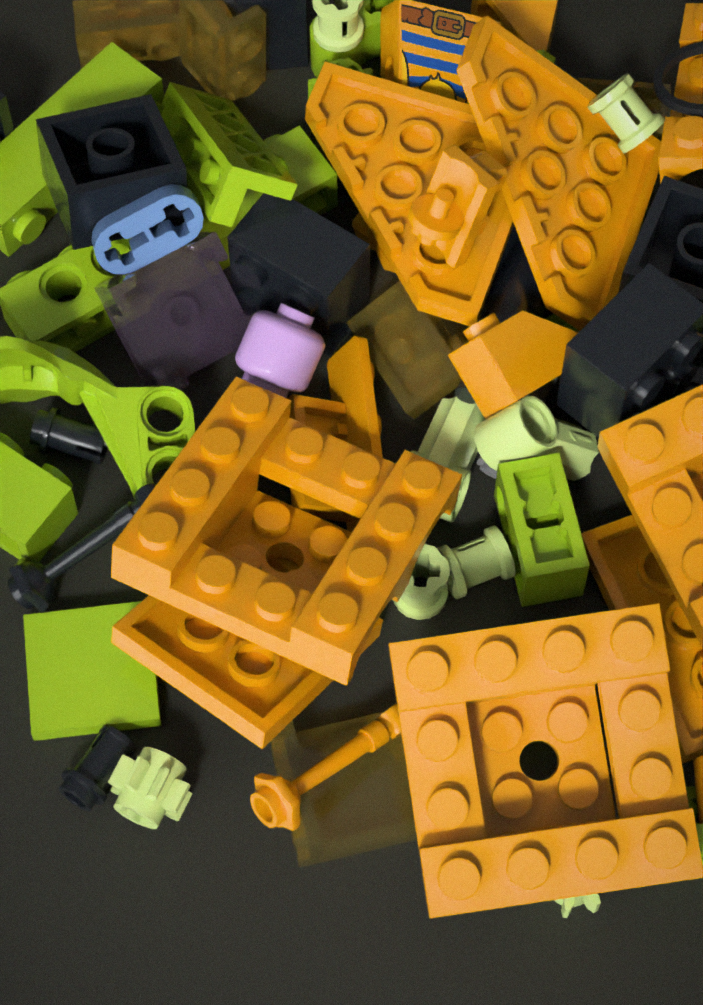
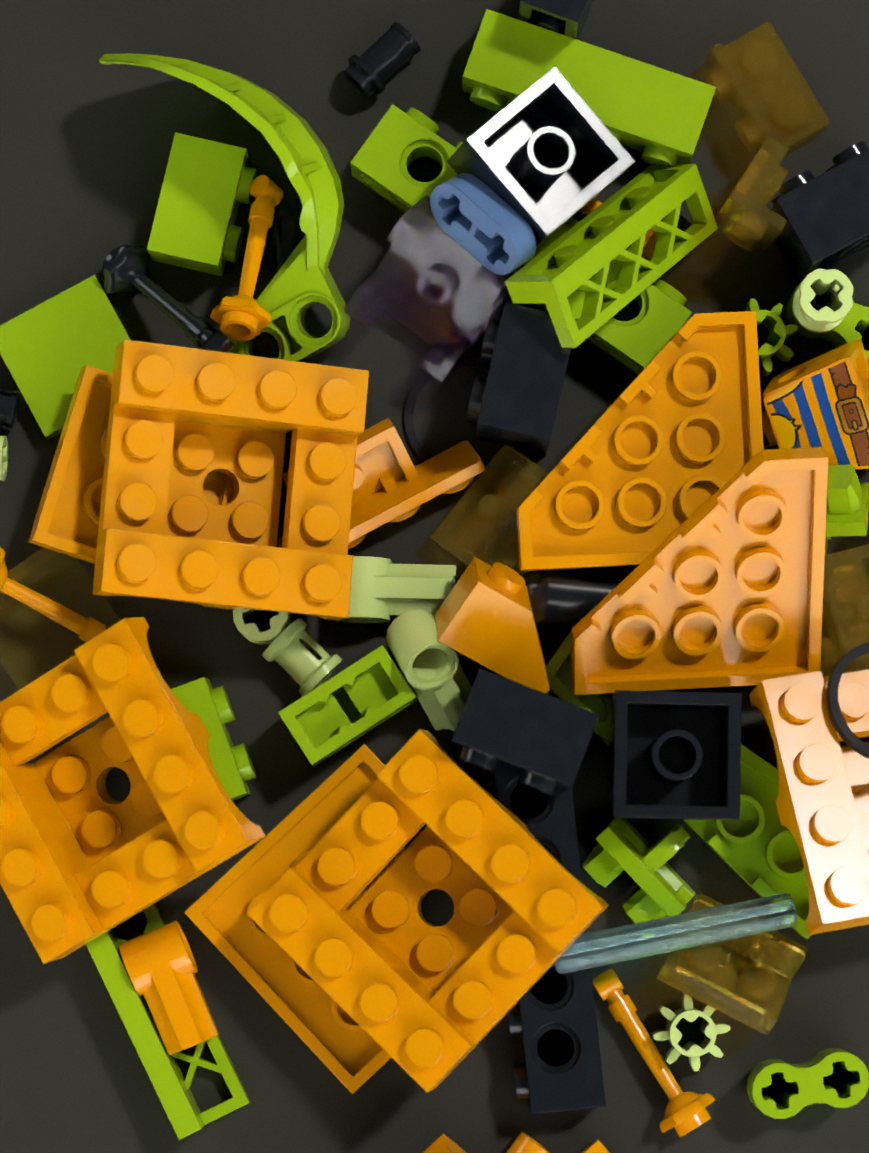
camera: 70 degrees right, 20 degrees up
(131, 464) = (241, 314): none -> light orange piece
(280, 350) = (420, 398): lavender head -> none
(457, 203) = (604, 507): light orange hips -> none
(626, 113) = (805, 630): yellowish green bush -> none

